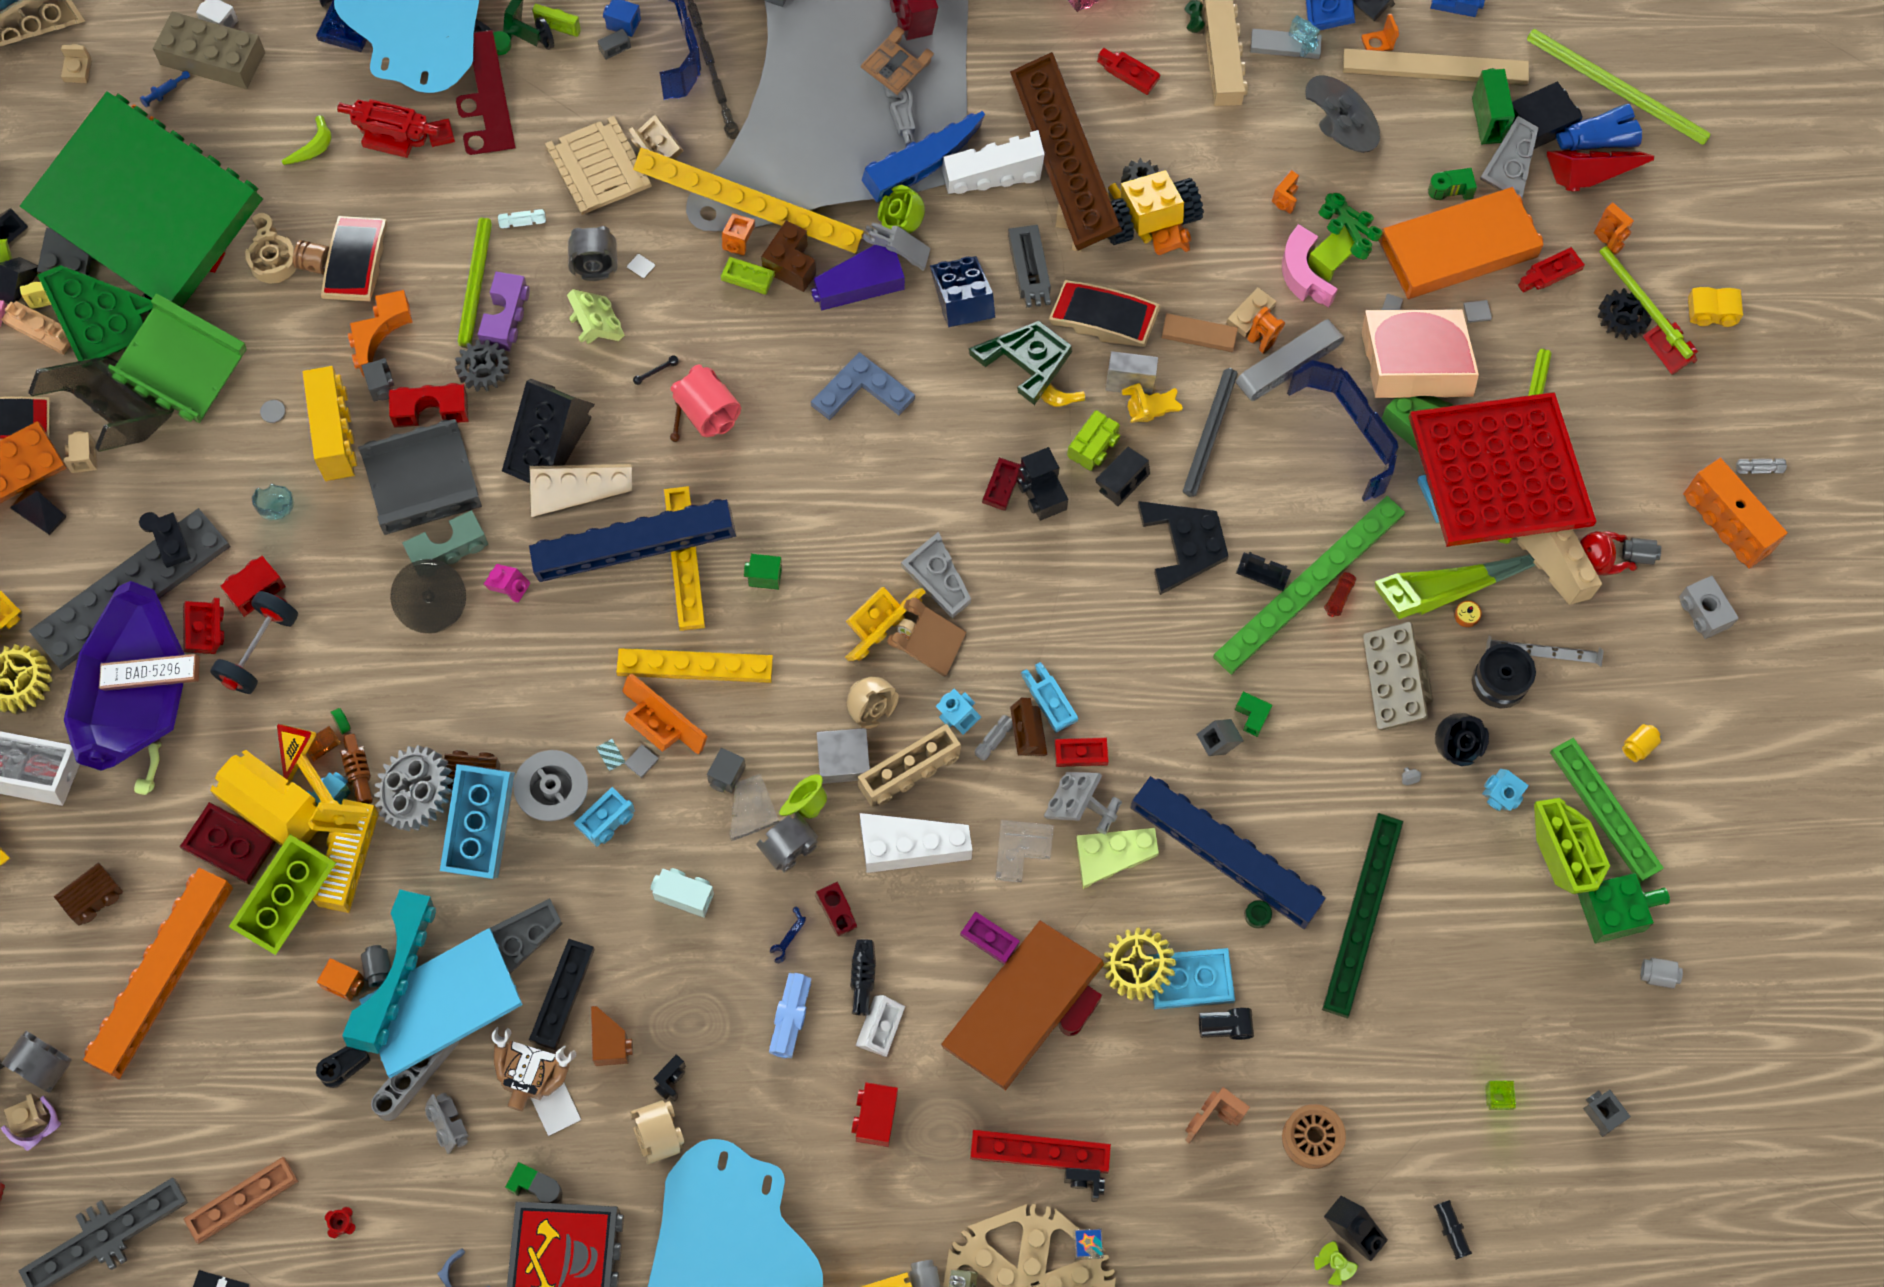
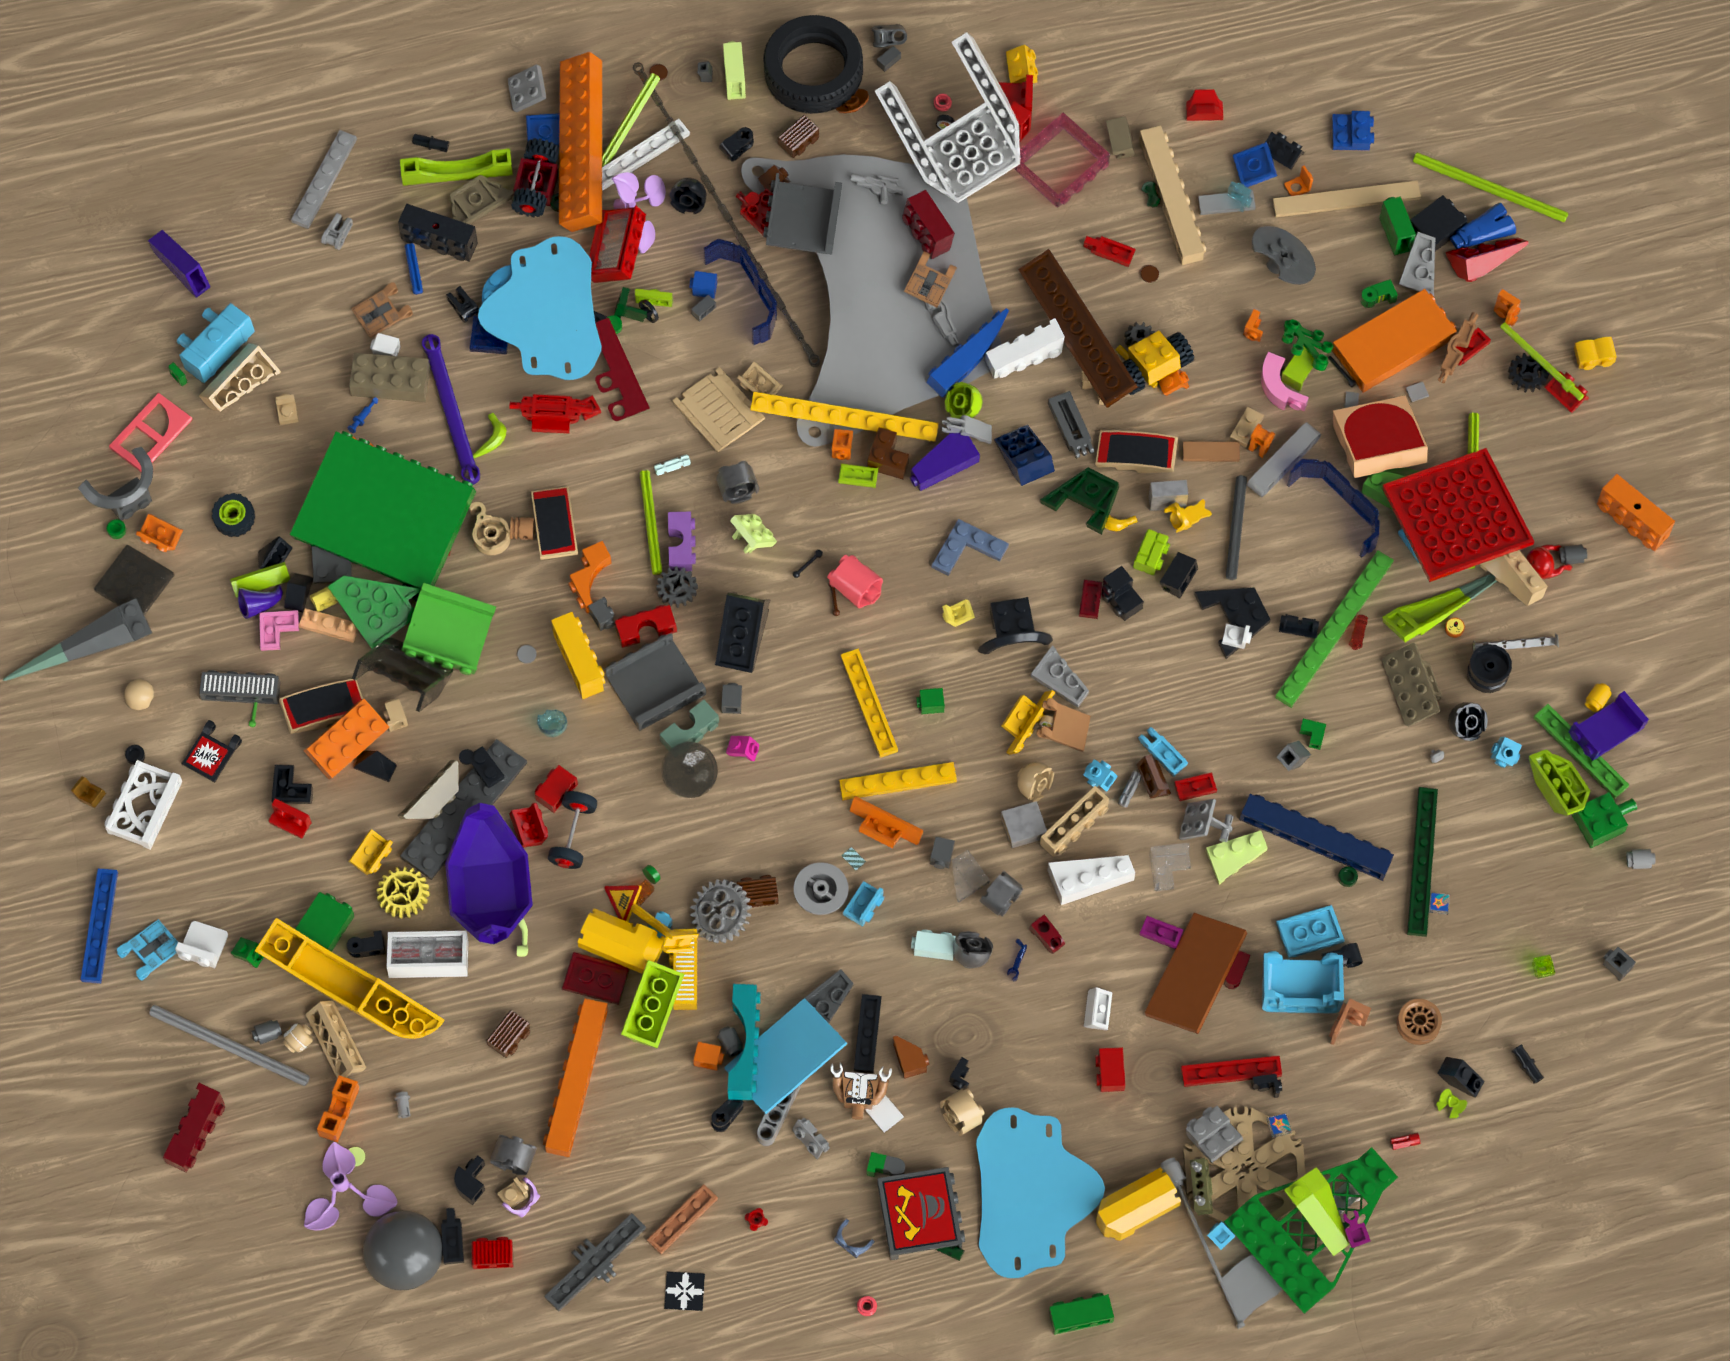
camera: 10 degrees left, 0 degrees up
(89, 562) = (435, 794): none -> wedge
(149, 672) = (502, 867): tile -> none
(273, 103) = (450, 408): none -> dark purple piece
(356, 769) = (673, 905): dark orange hinge -> none
(477, 821) = (776, 924): medium azure brick -> none
(510, 517) = (732, 698): none -> dark grey brick
(572, 485) = (771, 665): tan wing -> none
(632, 540) = (829, 697): dark blue brick -> none
(641, 265) = (773, 483): white sticker -> none
(641, 761) = (877, 858): light grey piece -> none
(729, 908) = (971, 949): none -> flat silver cylinder
(790, 1015) = (1033, 1015): light blue piece -> none
(806, 798) = (1005, 859): lime piece -> none
(827, 468) = (958, 613): none -> light yellow bracket
(862, 975) = (1077, 977): black hinge -> none
(893, 496) = (1013, 625): none -> black piece
(993, 1237) = (1213, 1133): none -> light grey plate
(1128, 964) = (1264, 930): light yellow gear -> none
(1164, 1050) = (1302, 984): none -> medium azure windscreen
(1171, 108) = (1149, 274): none -> reddish brown piece
(1179, 567) = (1236, 636): none -> white bracket
(1374, 976) = (1439, 903): none -> tile
(1396, 283) = (1352, 383): none -> black piece
(1533, 273) = (1462, 340): none -> medium nougat piece
(1650, 784) = (1609, 726): none -> dark purple panel
(1709, 594) = (1627, 577): light grey brick -> none
(1761, 466) = (1649, 471): light grey axle -> none

